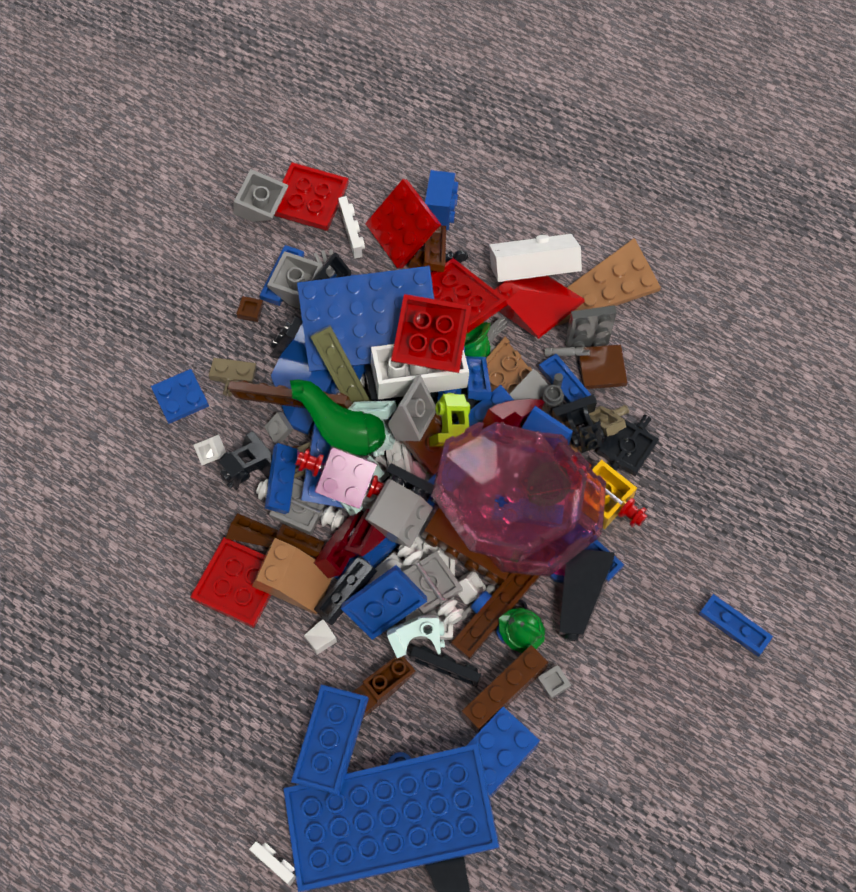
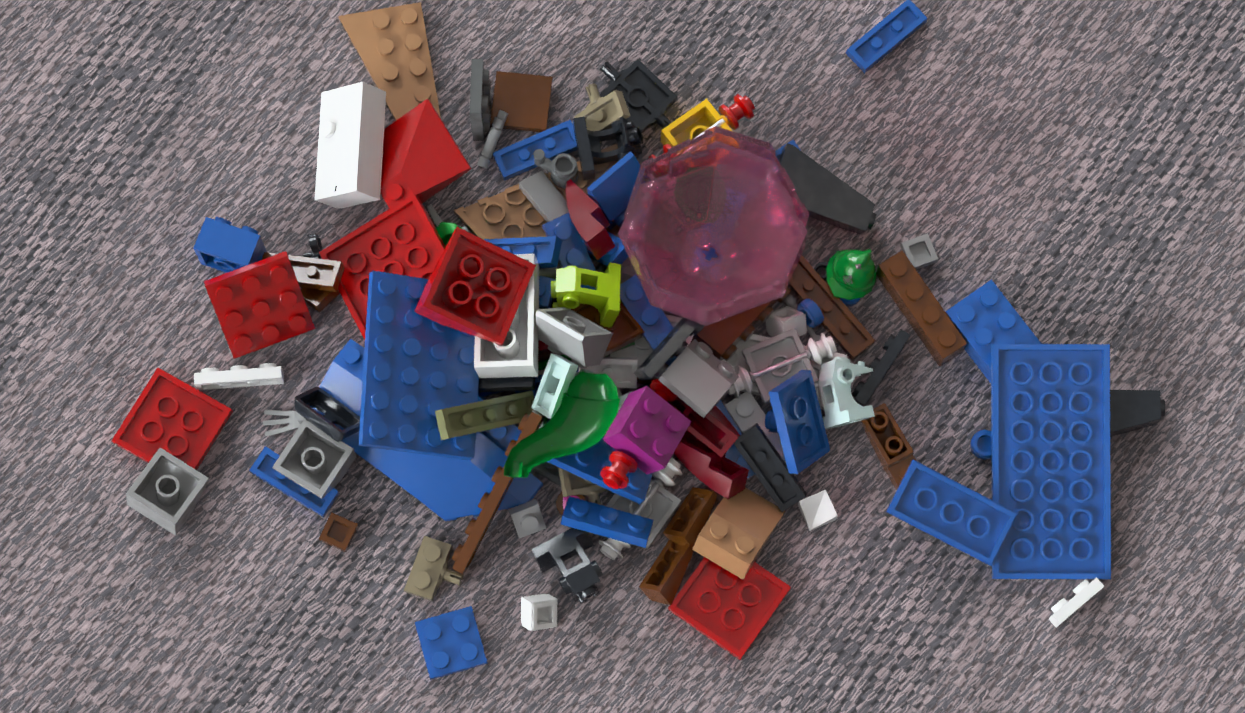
camera: 80 degrees left, 10 degrees up
(285, 337) = (410, 484): black plate -> none

